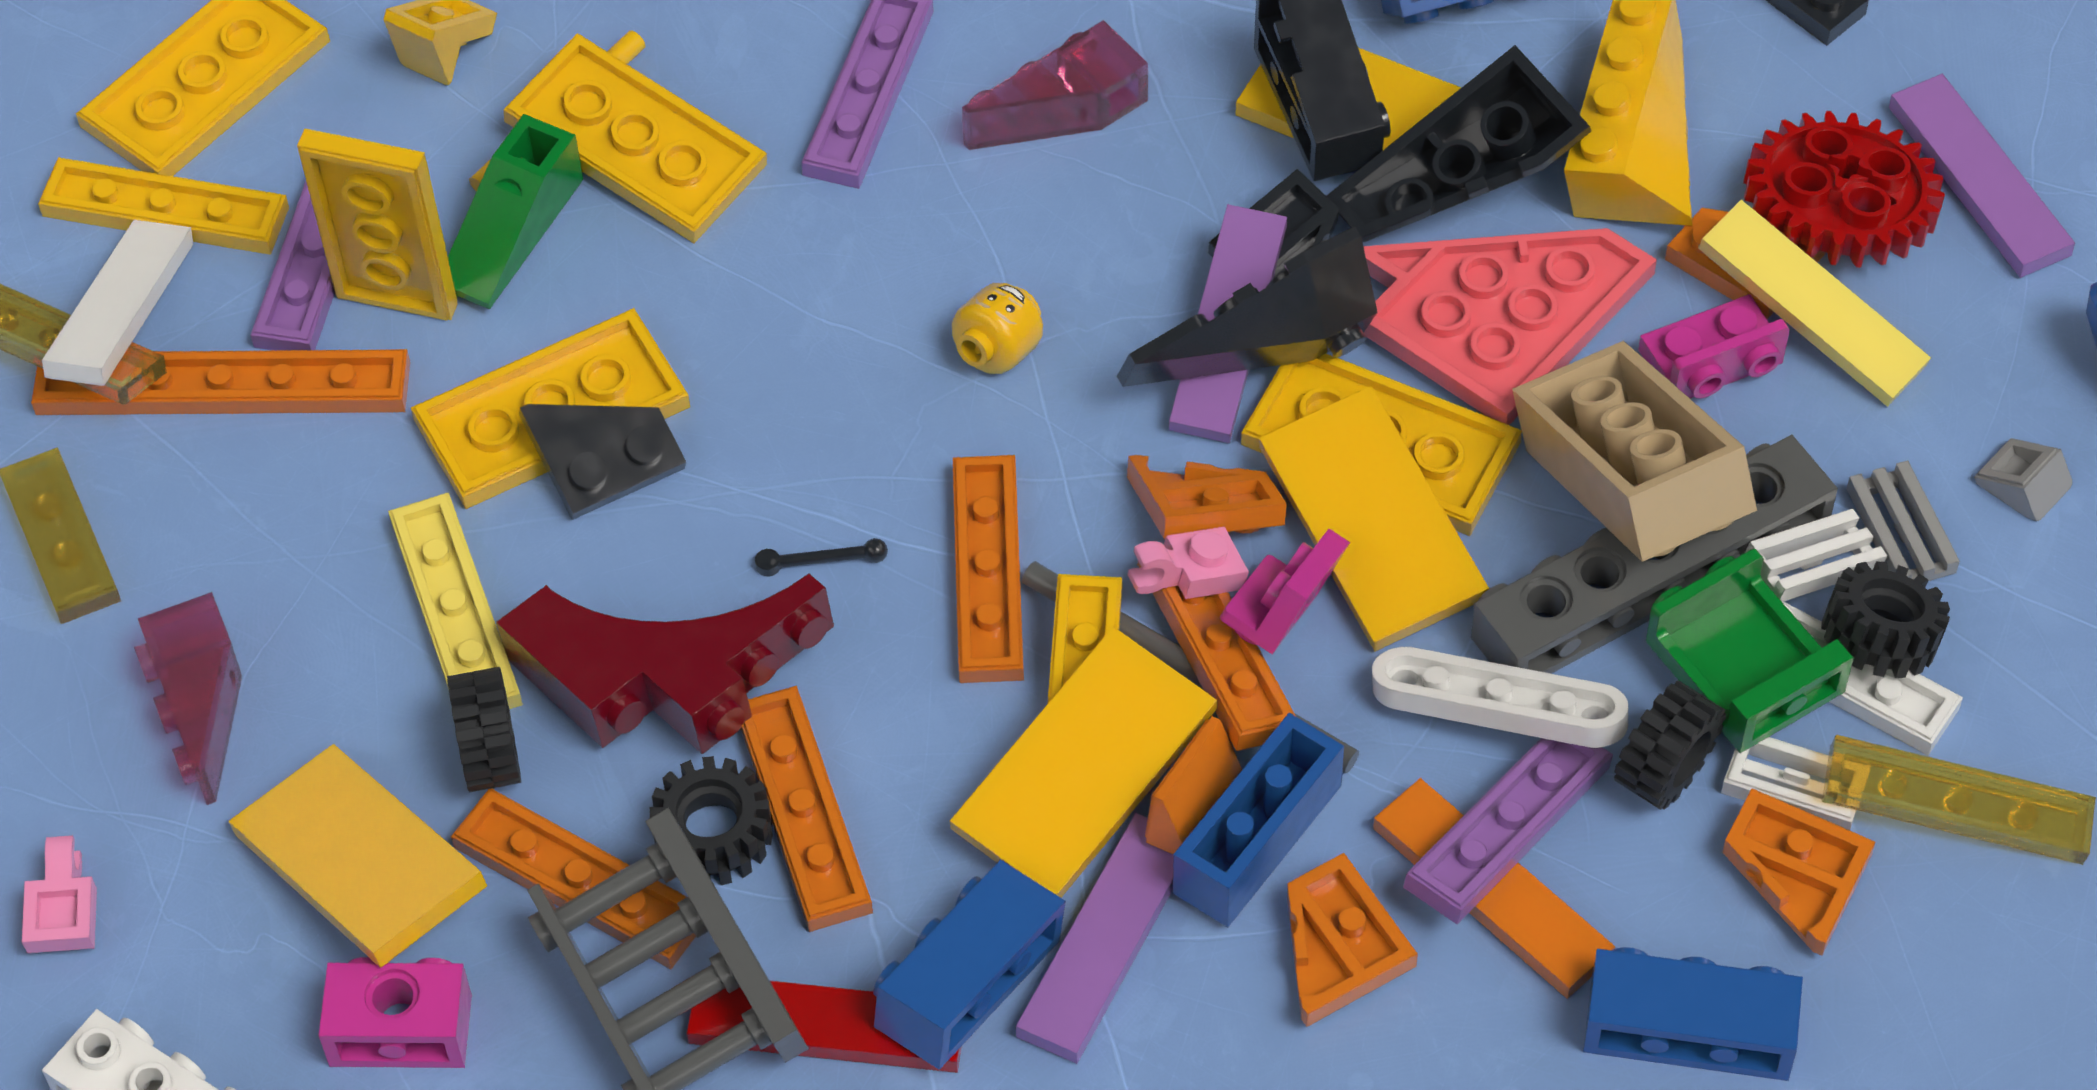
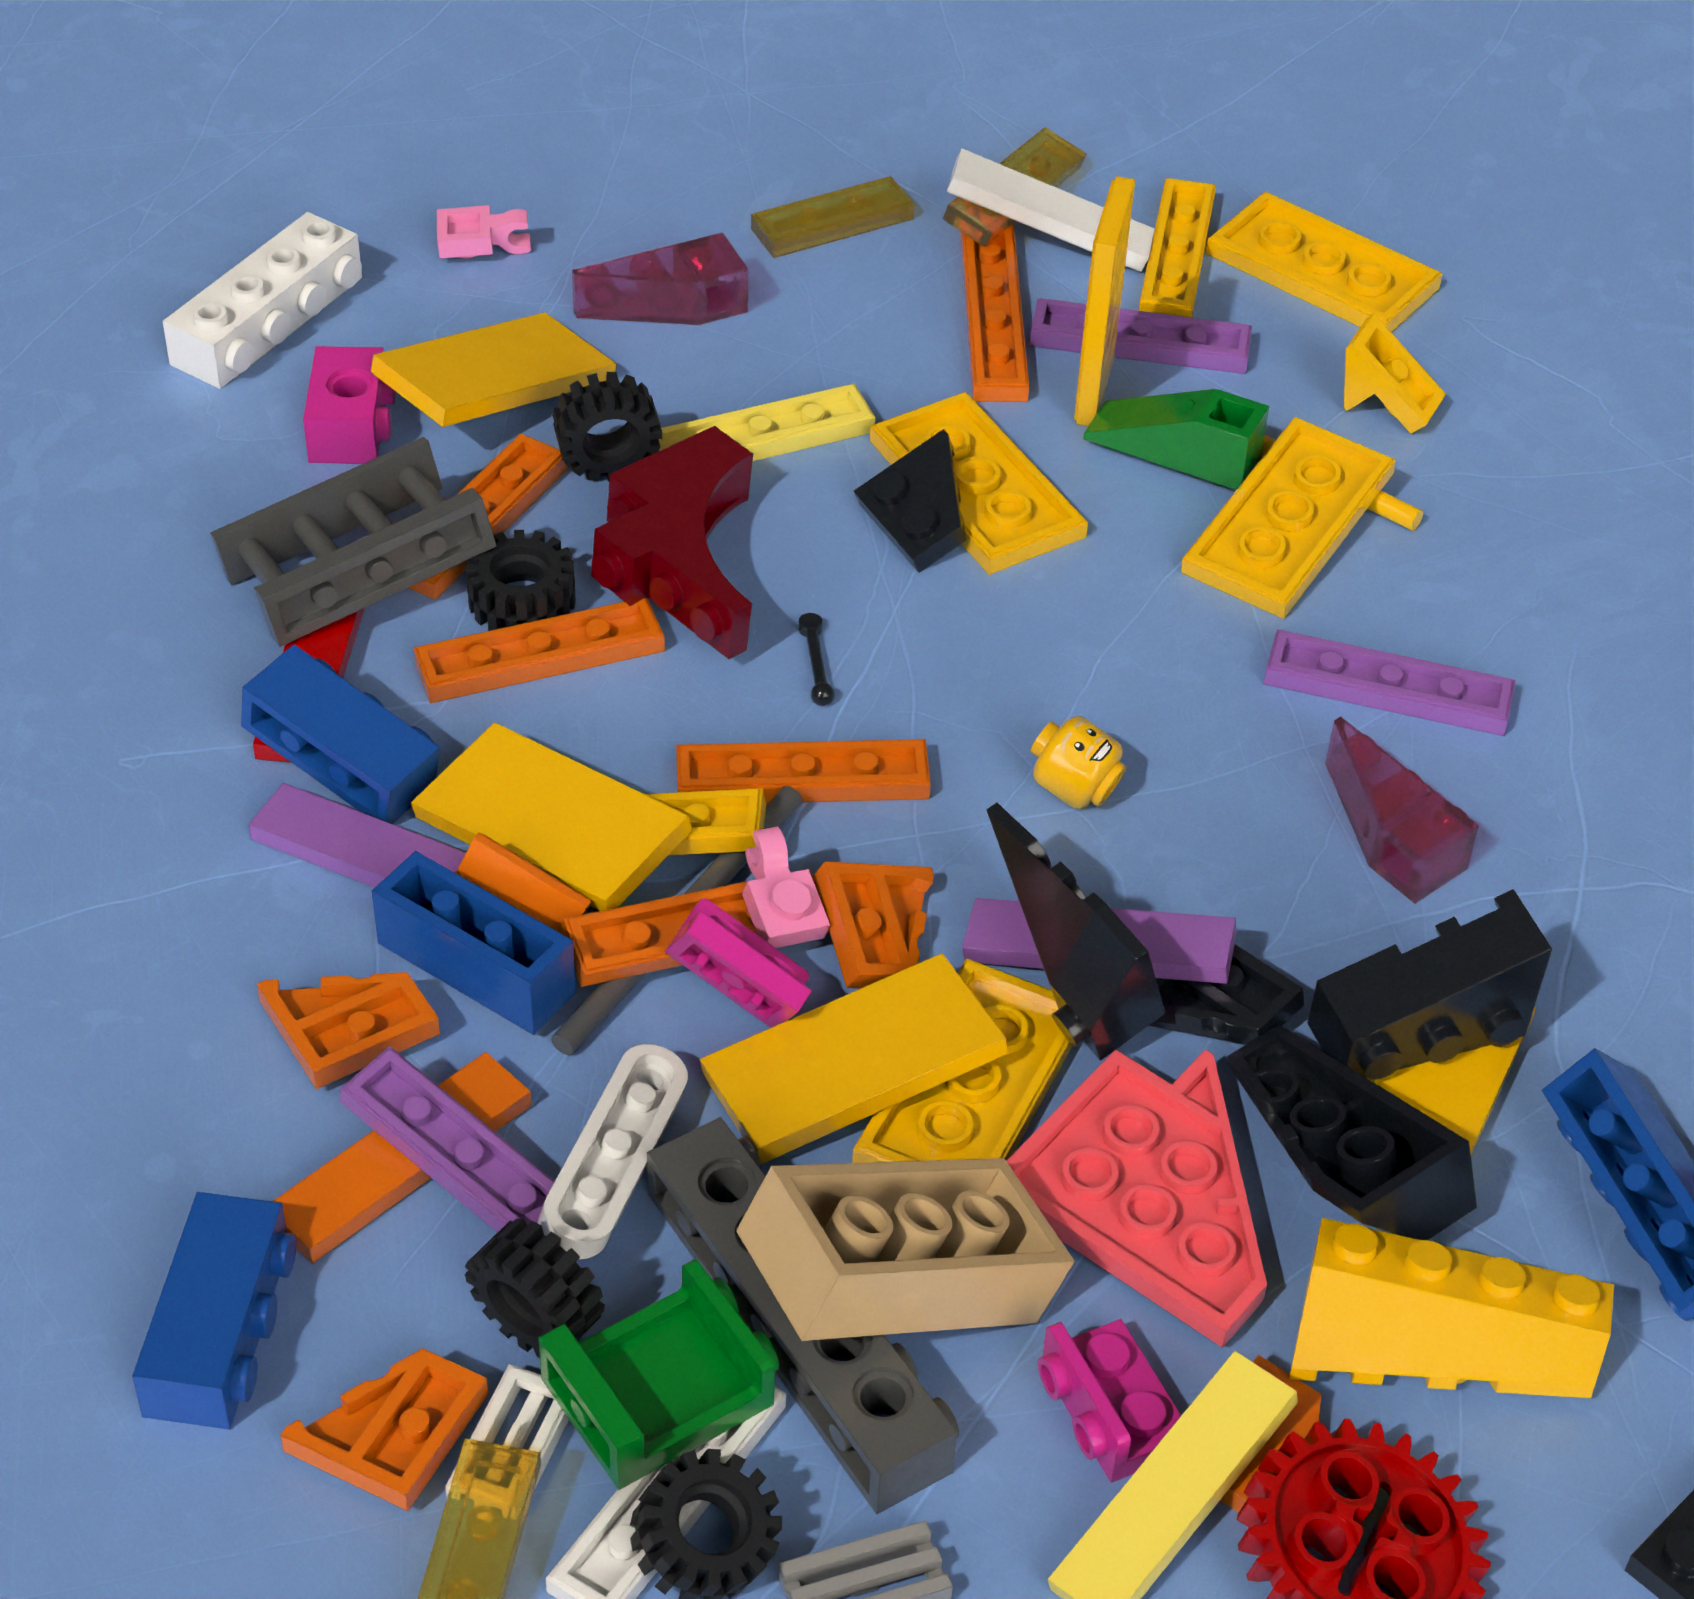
camera: 85 degrees right, 10 degrees down
(1808, 547) = (857, 1502): white tile -> none

